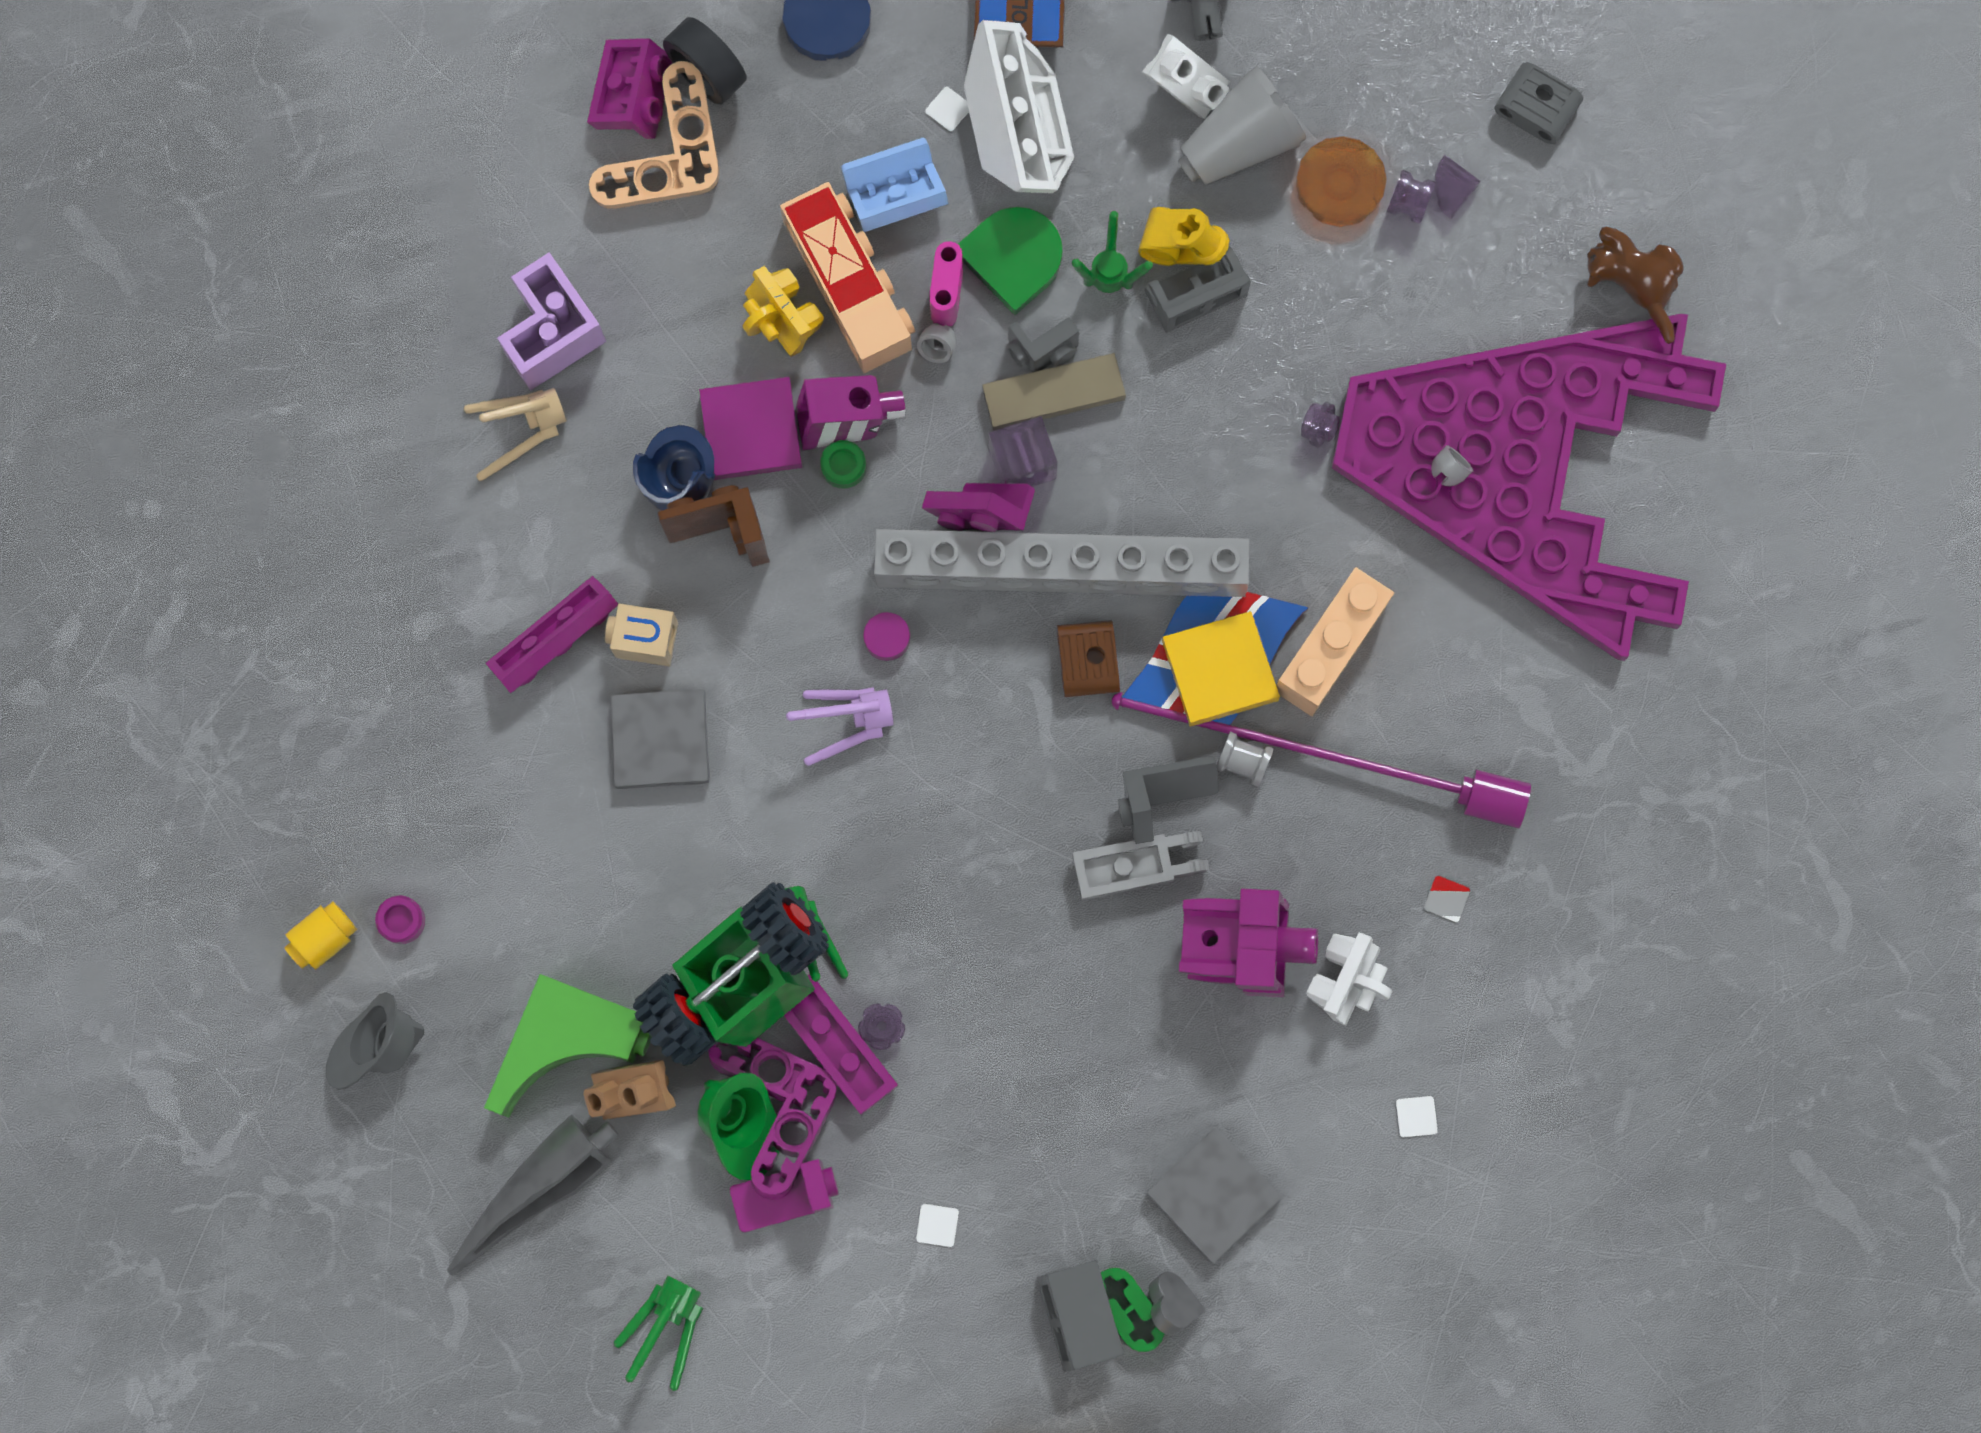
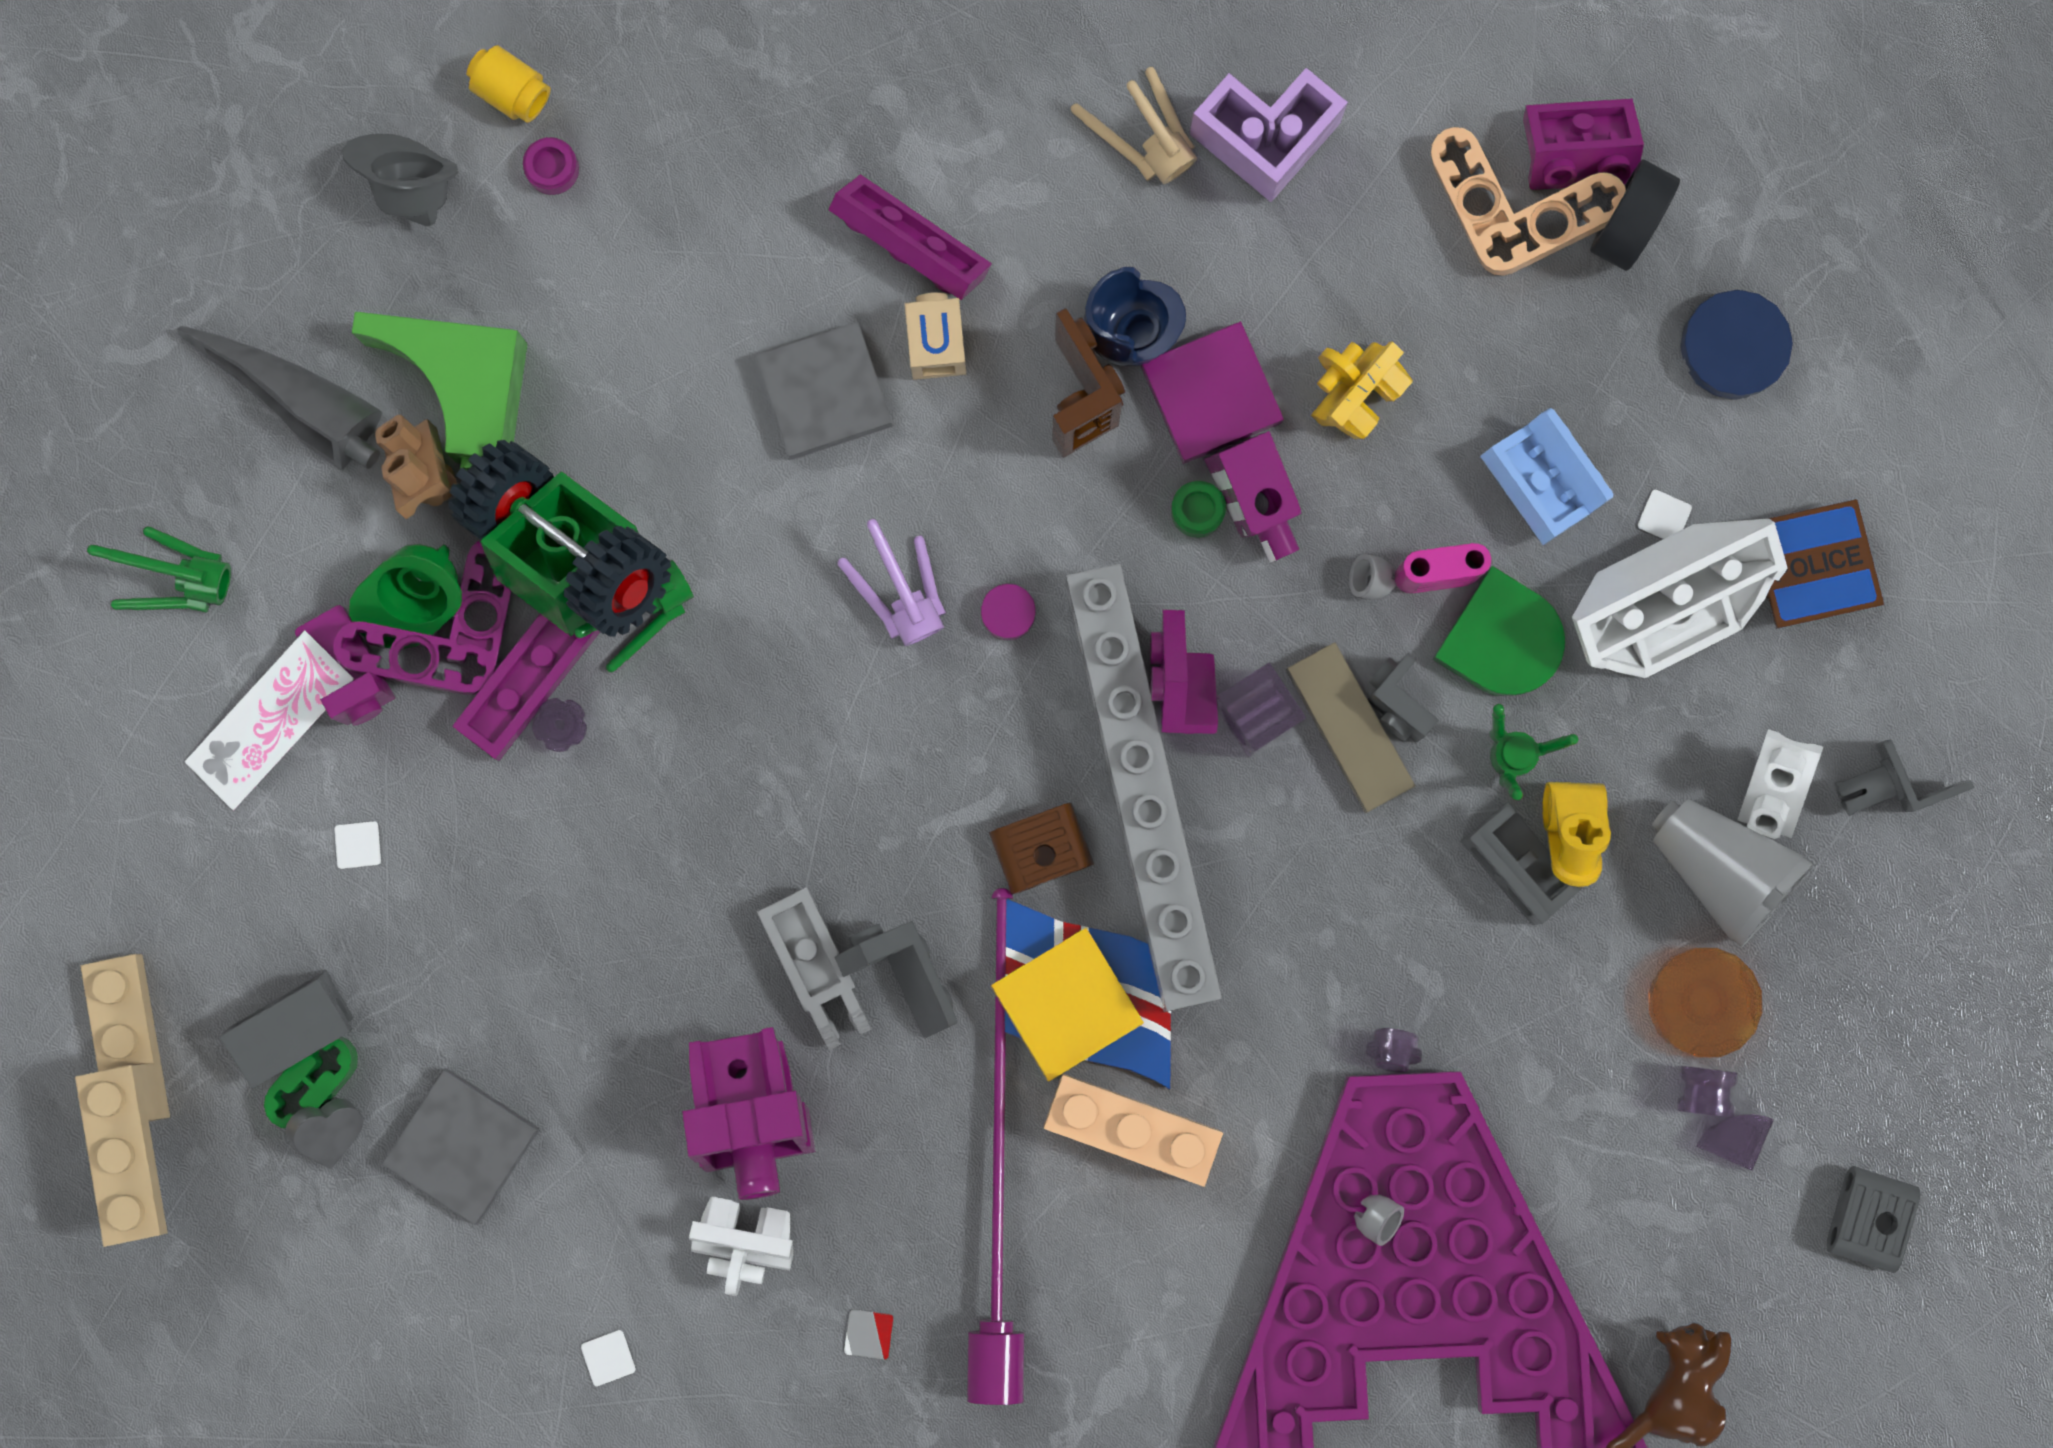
camera: 75 degrees right, 5 degrees up
(812, 1273) = (268, 720): none -> white sticker
(847, 277) = (1420, 451): light nougat brick -> none
(1244, 759) = (967, 1058): light grey bush -> none

